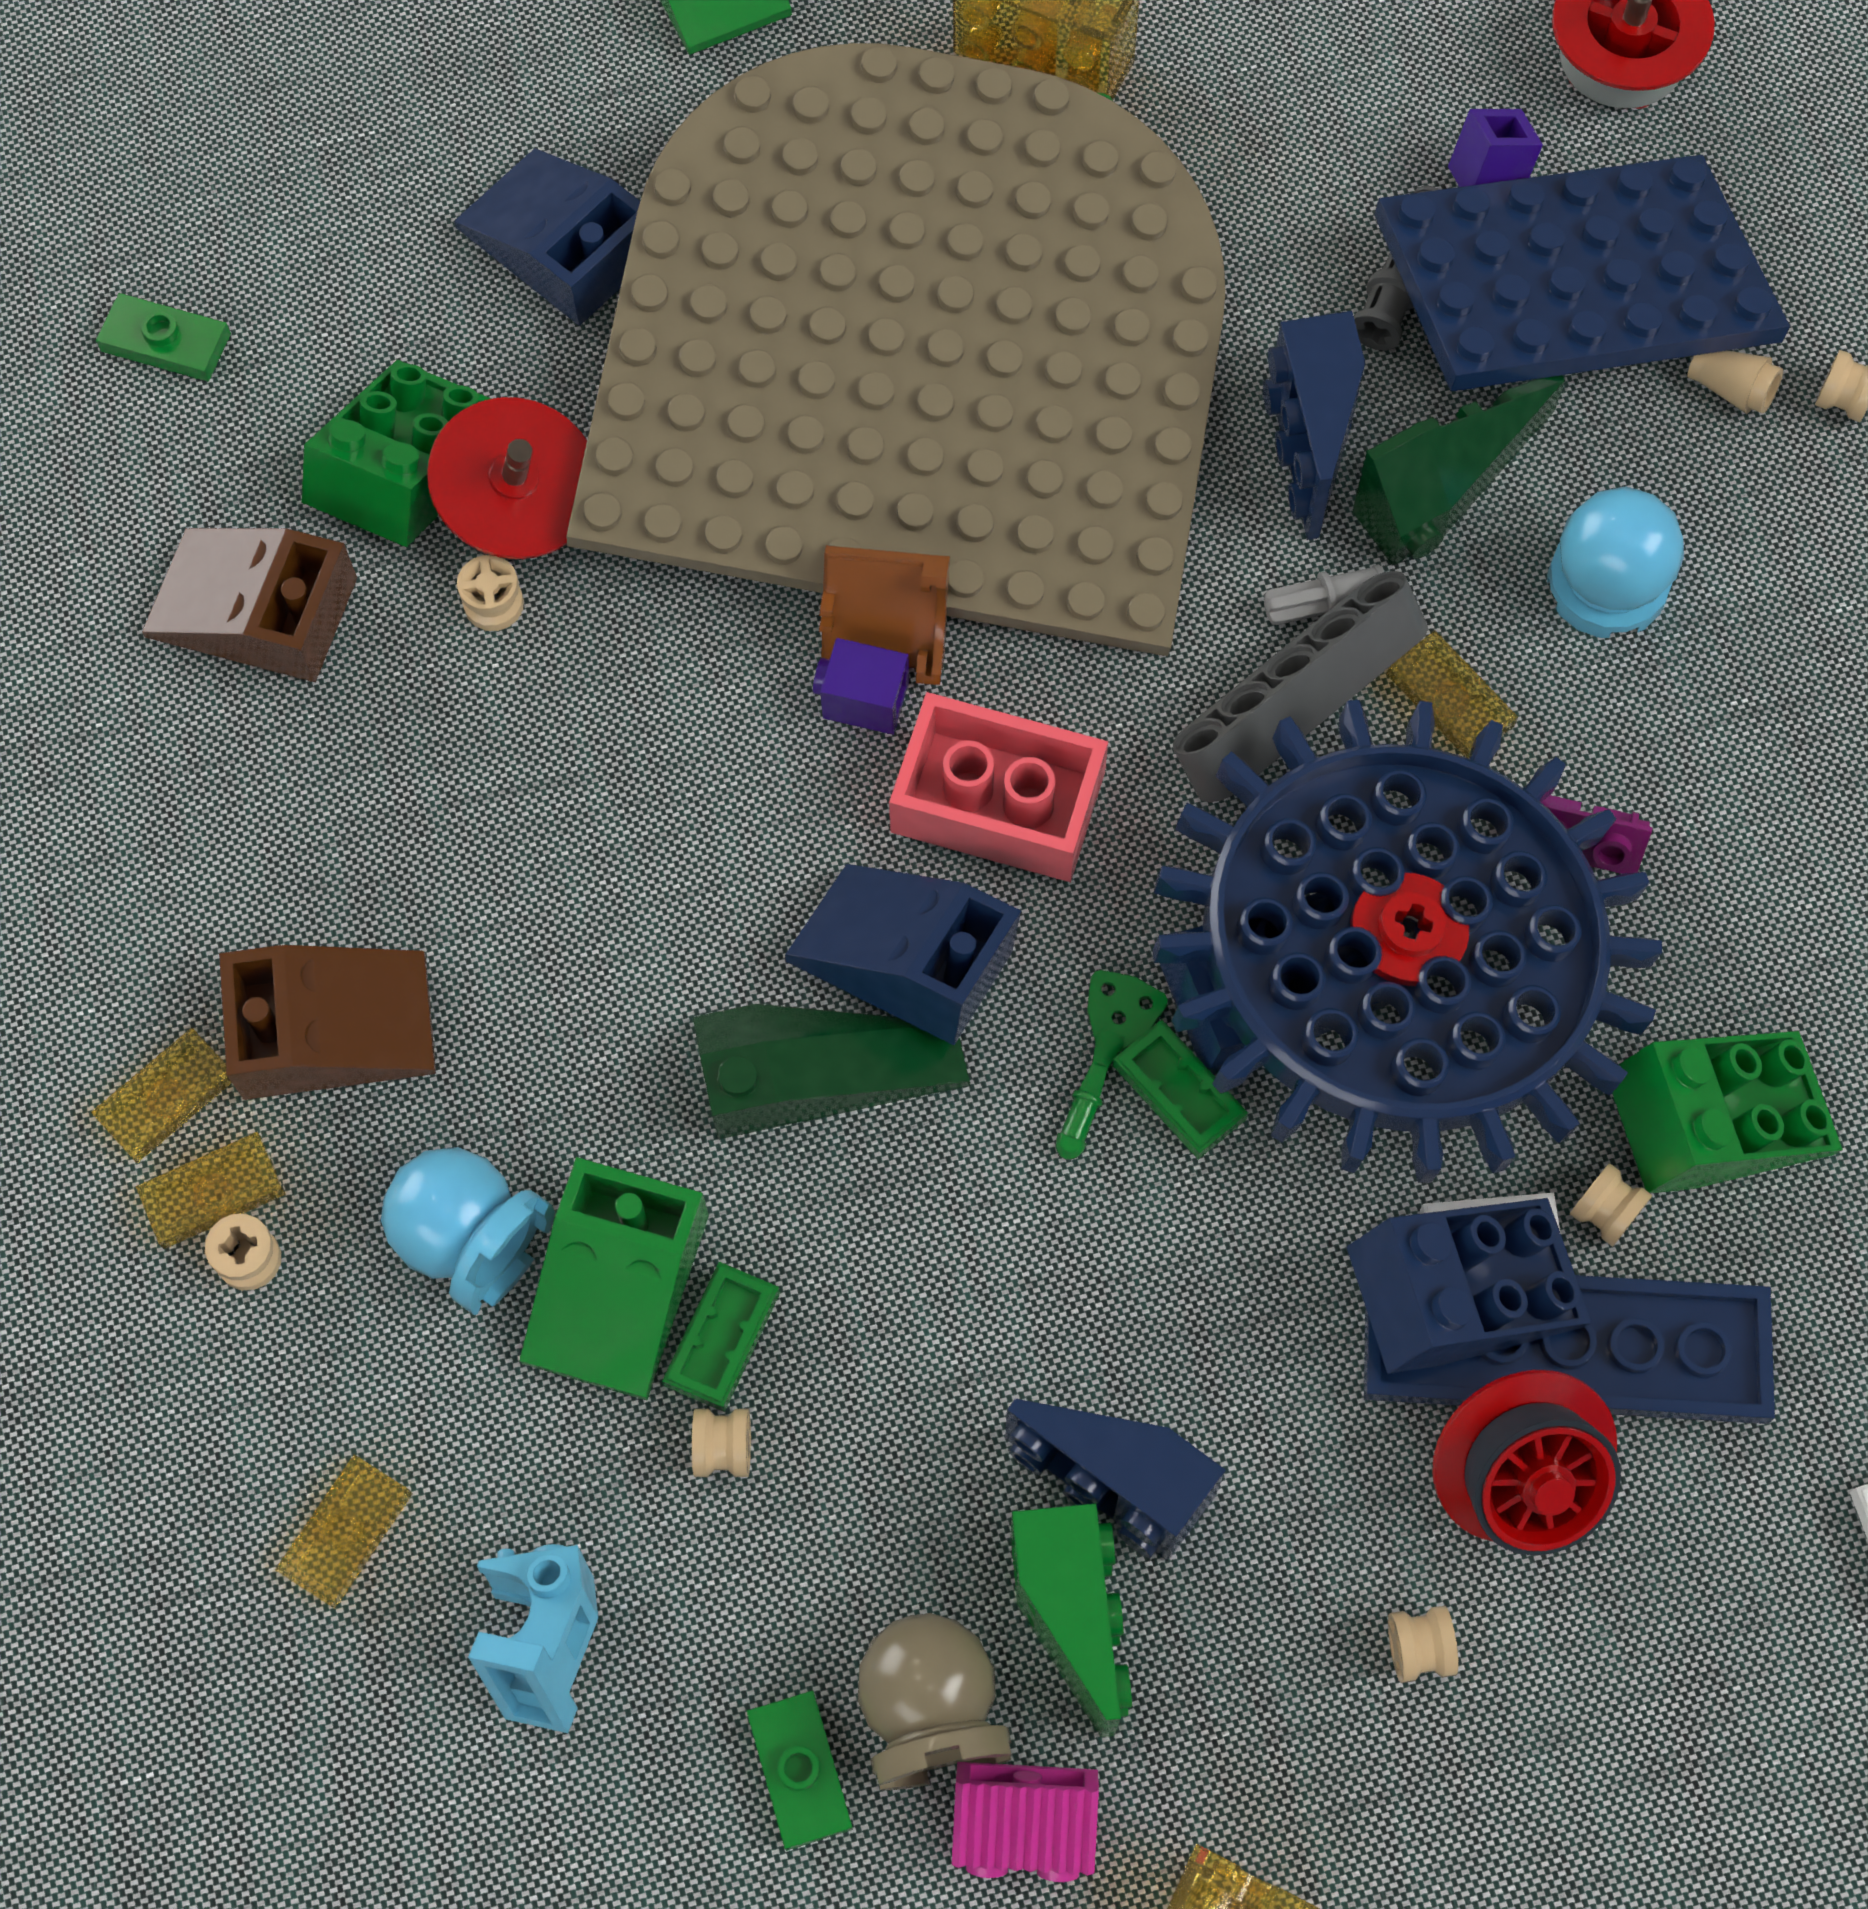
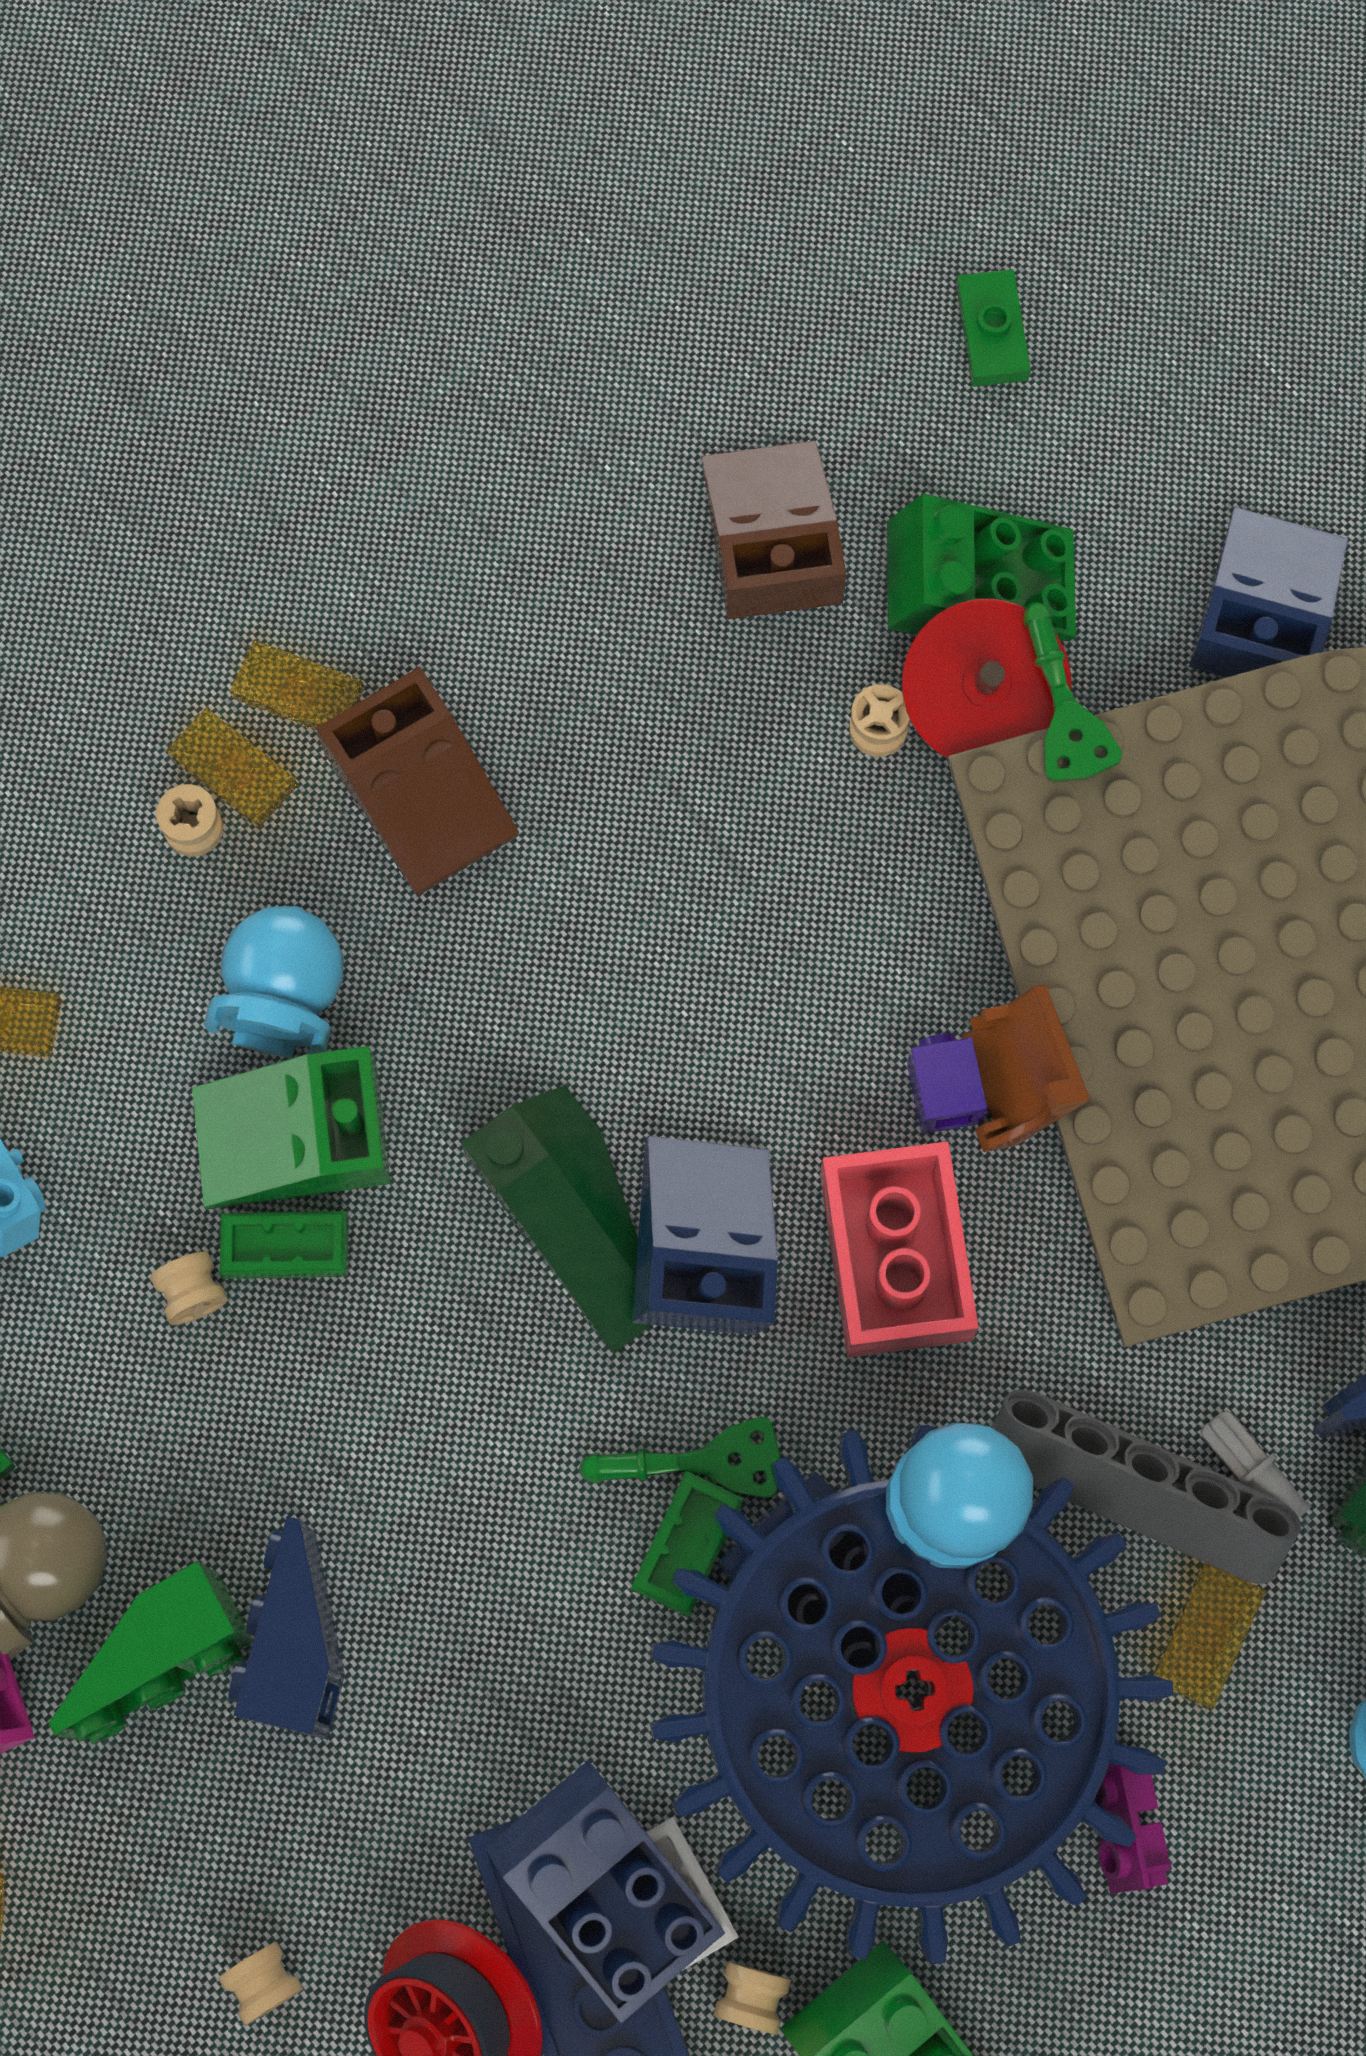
camera: 65 degrees right, 5 degrees up
(587, 415) = (1068, 714): none -> green piece
(1267, 793) = (960, 1495): none -> medium azure tile

